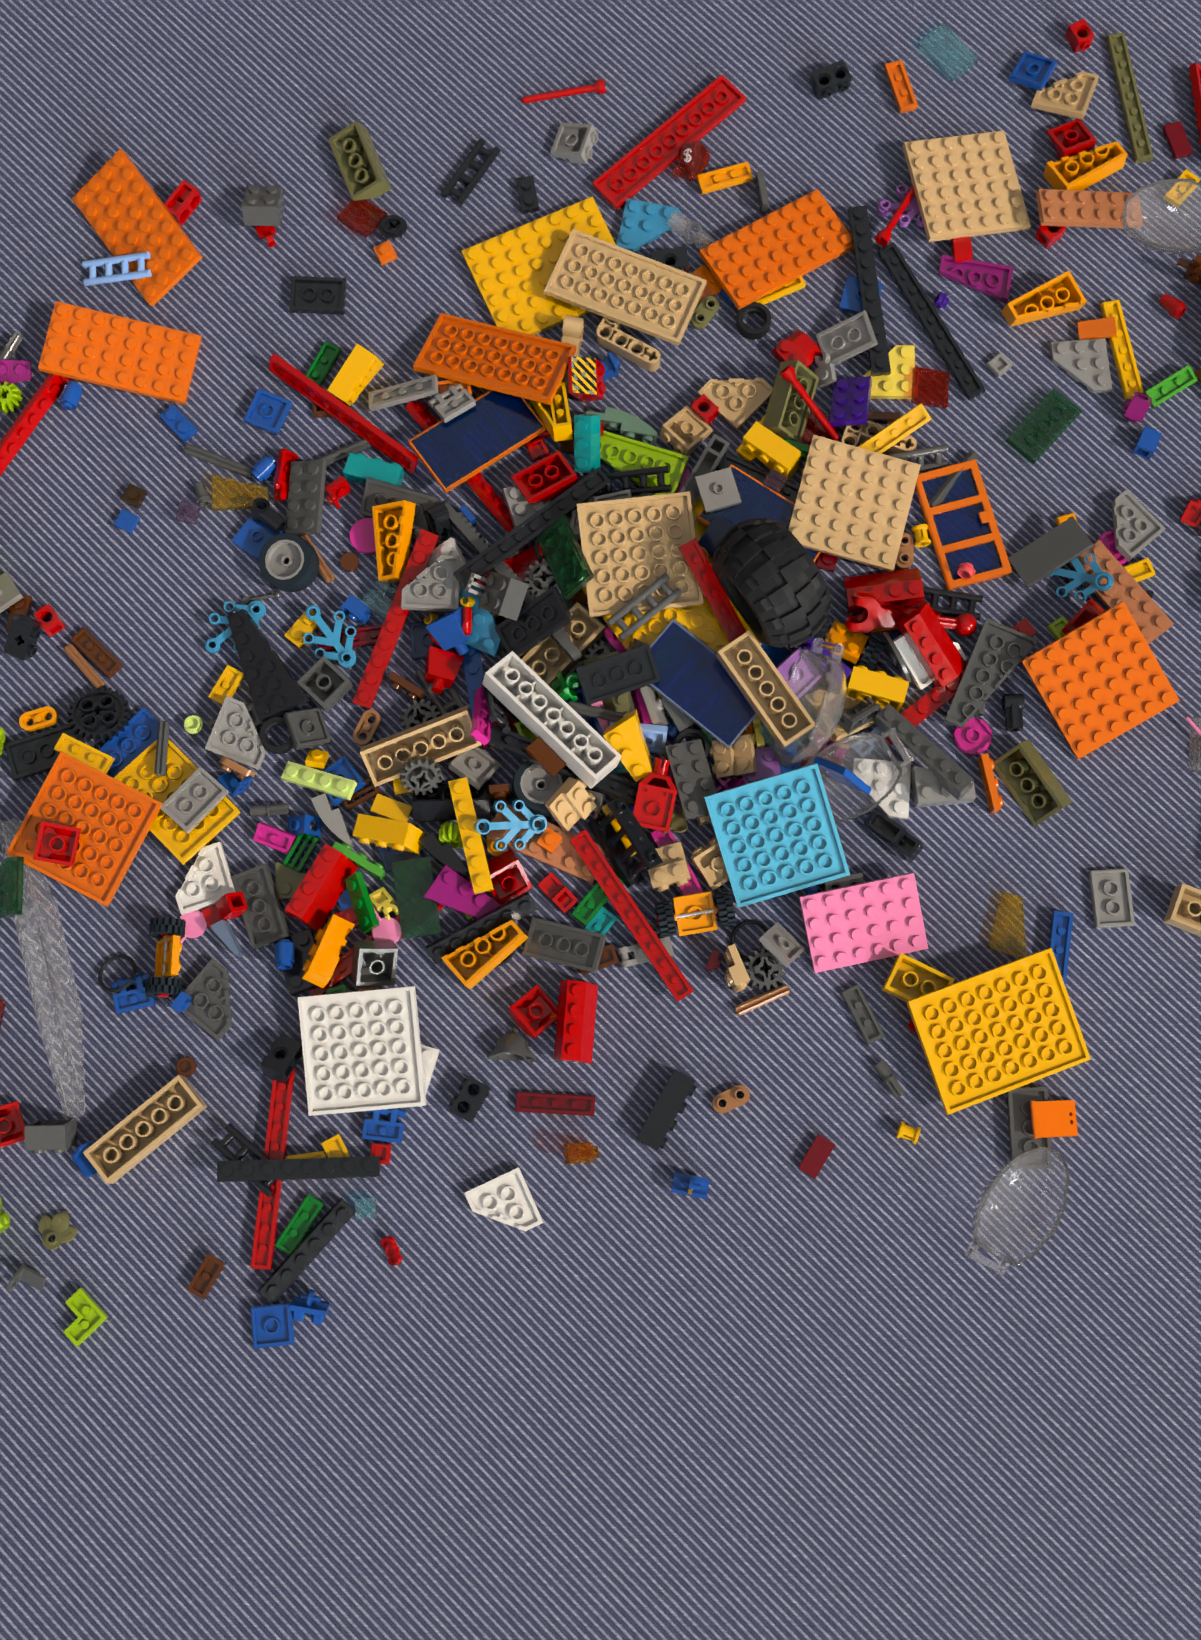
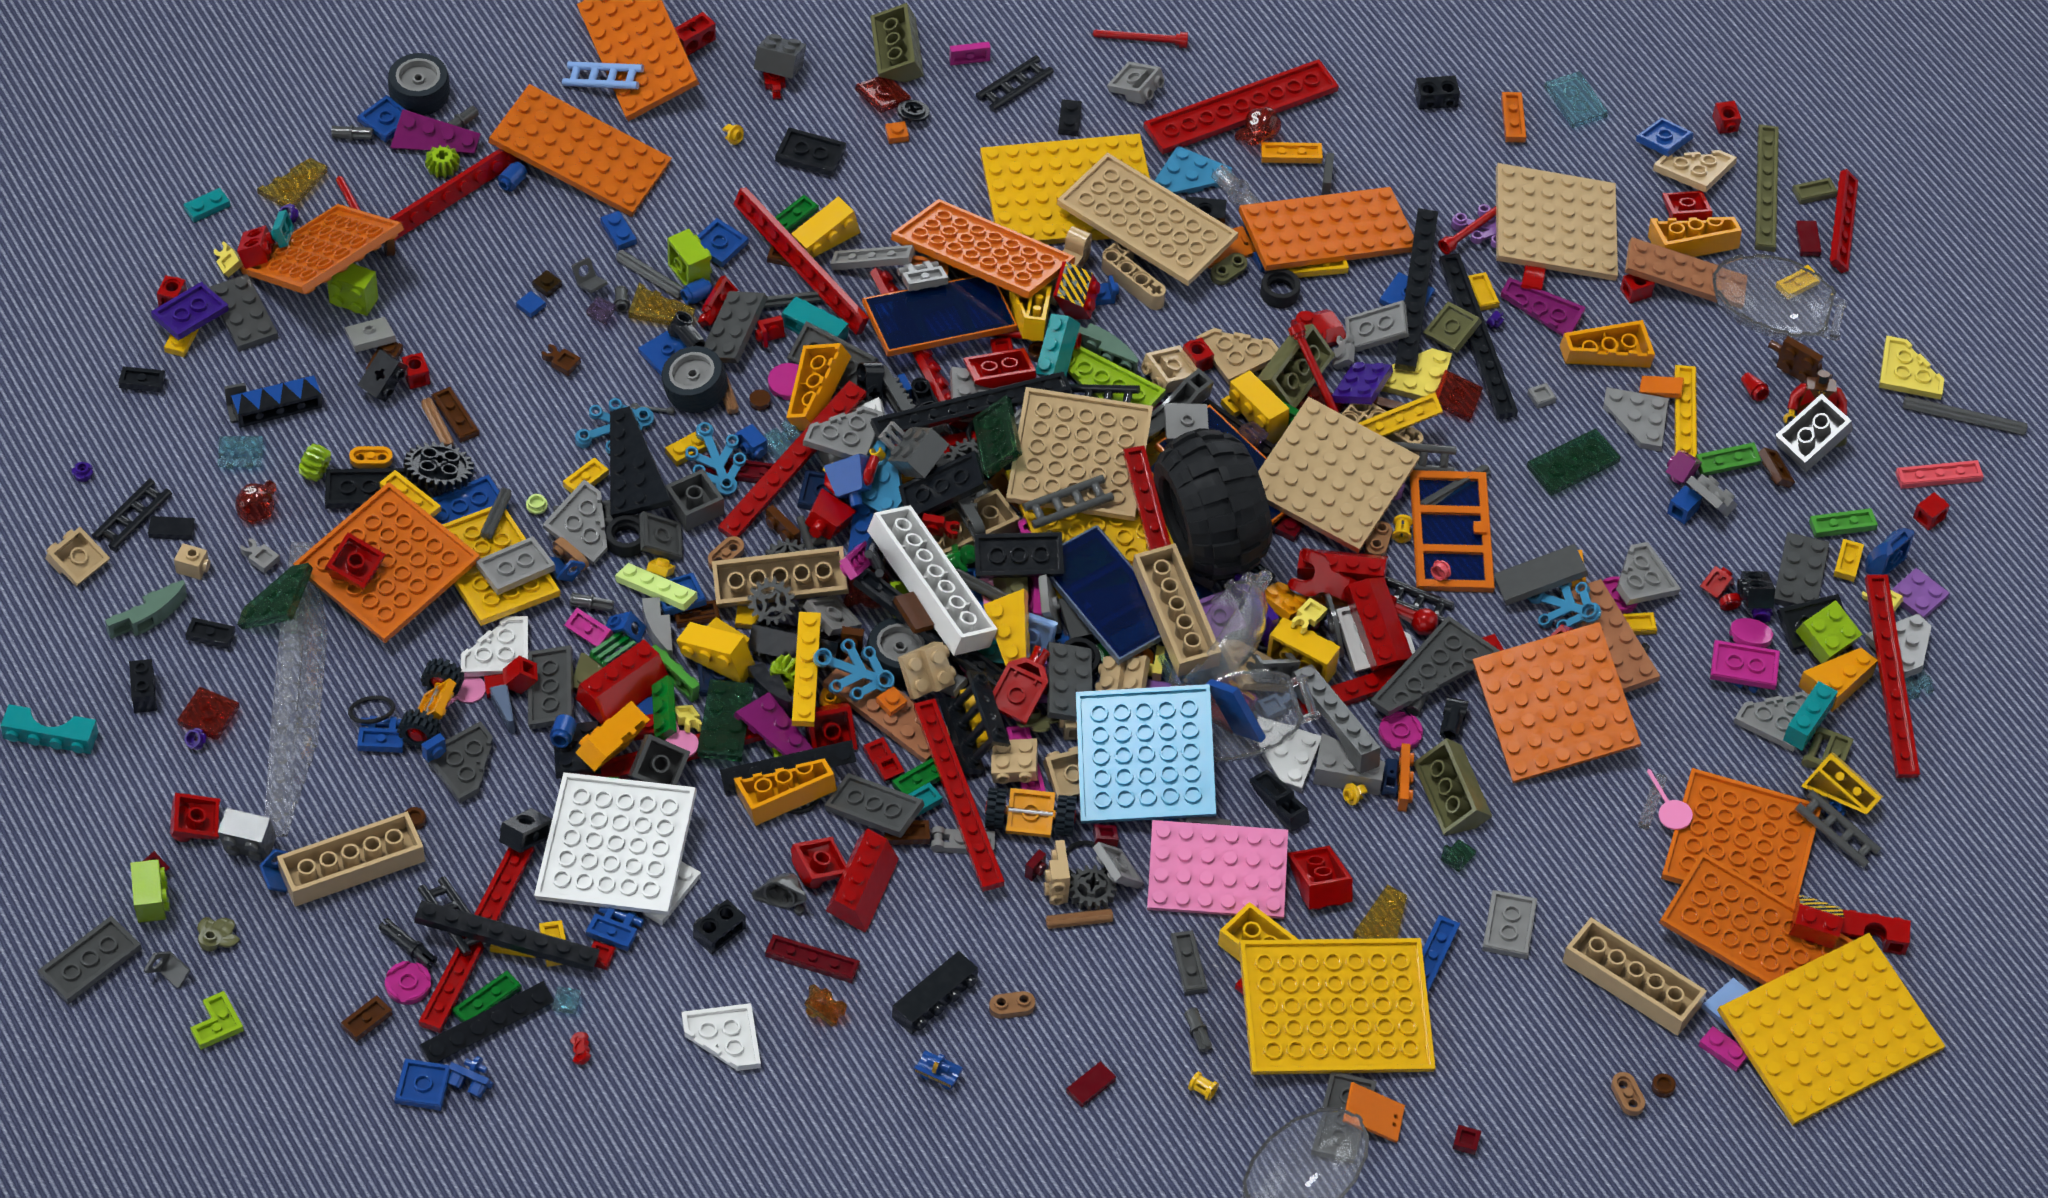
camera: 10 degrees right, 25 degrees down
(170, 483) = (590, 281): none -> dark grey bracket
(171, 572) = (562, 361): none -> reddish brown plate
(225, 1196) = (414, 948): none -> black pin
(229, 1228) = (407, 982): none -> dark pink tile
(247, 295) = (735, 133): none -> yellow plate
(247, 440) = (688, 257): none -> lime brick
(423, 153) = (969, 53): none -> dark pink plate
(489, 525) = (926, 395): none -> black piece
(538, 659) = (938, 526): none -> red plate
(761, 913) = (1106, 834): none -> dark red plate
(876, 658) = (1309, 613): none -> light yellow plate
(909, 320) = (1452, 327): none -> olive plate
(923, 273) = (1484, 291): none -> yellow tile
(948, 901) = (1321, 877): none -> red slope
(951, 812) = (1353, 793): none -> yellow plate
(976, 774) = (1390, 776): none -> dark blue bar
(1053, 845) = (1457, 855): none -> clear green bracket
(1133, 1118) = (1466, 1139): none -> dark red plate
(1170, 89) = (1814, 191): none -> olive tile
(1170, 428) = (1708, 489): none -> light grey plate

